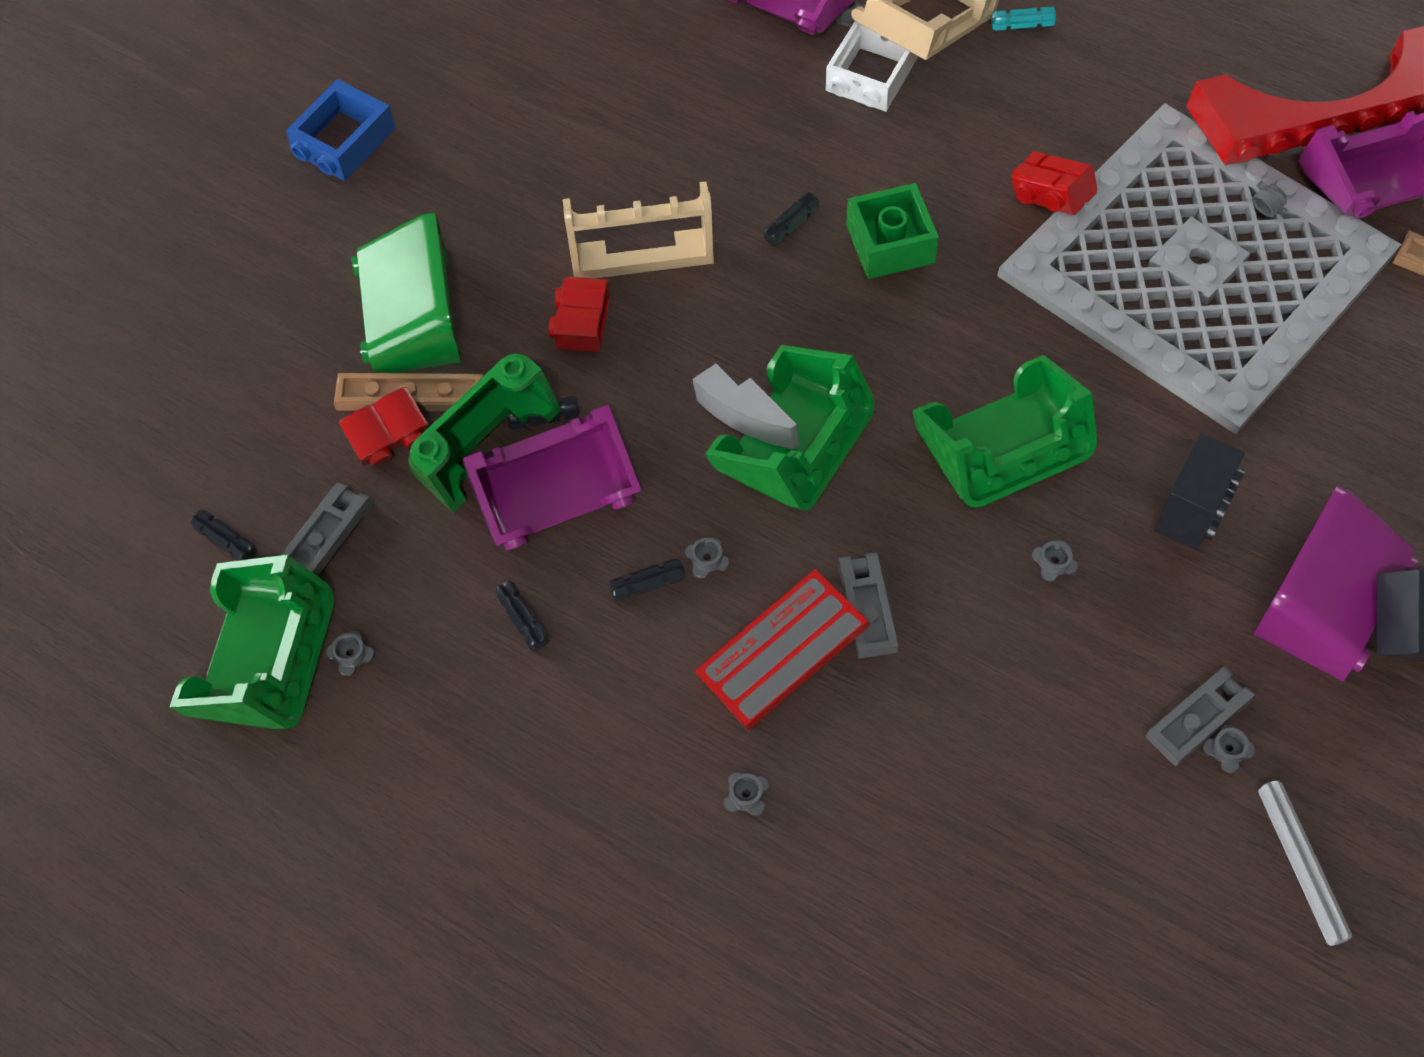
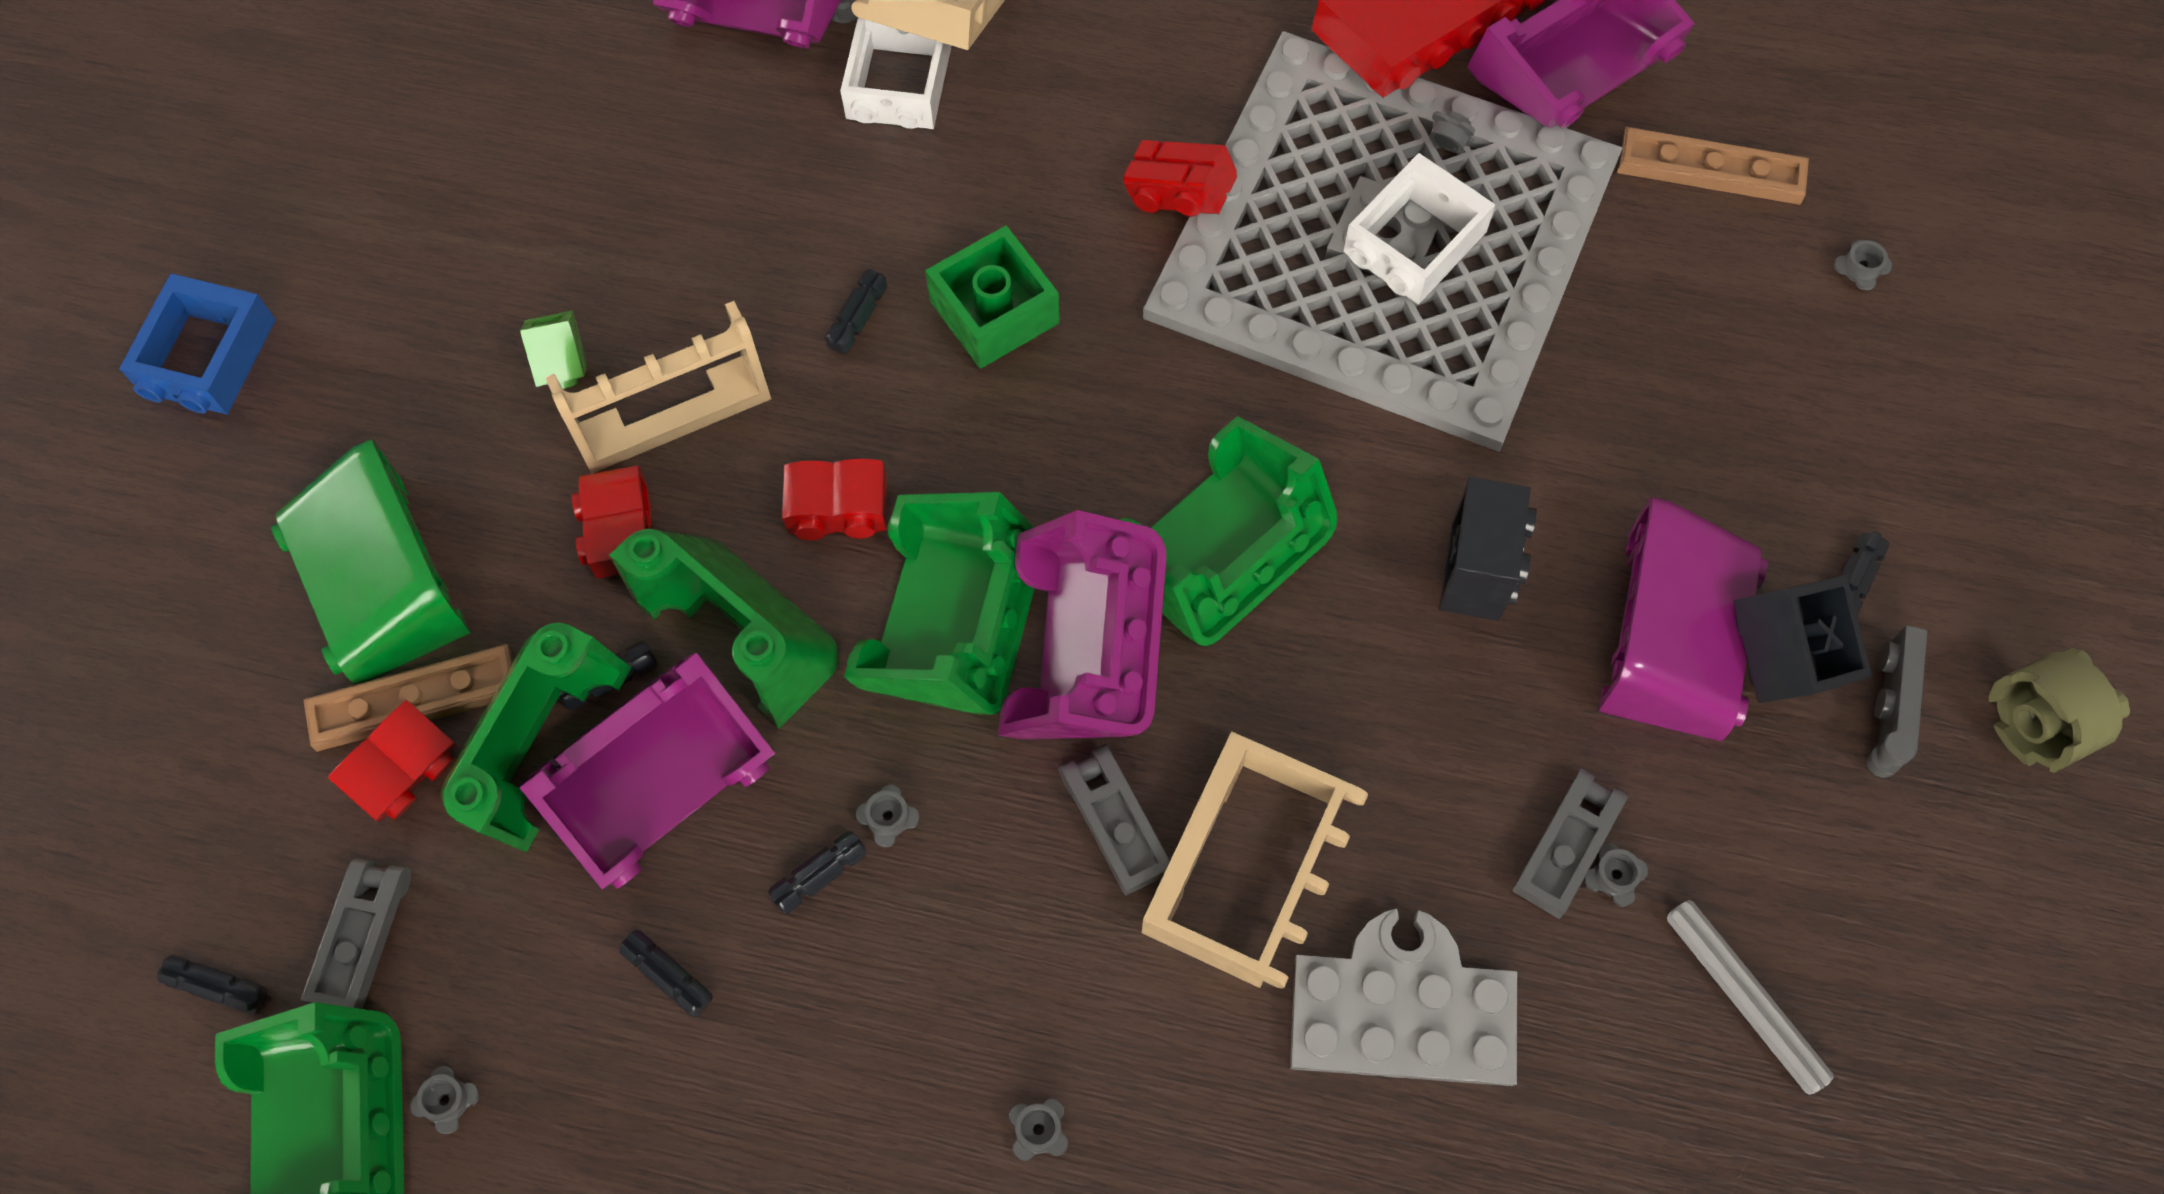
camera: 20 degrees left, 5 degrees up
(576, 184) = (554, 348): none -> brick
(666, 421) = (778, 642): none -> green windscreen
(737, 337) = (835, 498): none -> red brick
(745, 408) = (875, 595): light grey slope -> none
(782, 649) = (1025, 917): tile -> none
(899, 467) = (1098, 629): none -> magenta windscreen
(950, 602) = (1238, 753): none -> tan hinge
(1038, 794) = (1404, 1010): none -> light grey plate
(1058, 550) = (1333, 673): dark grey plate -> none
(1242, 237) = (1438, 194): none -> white window

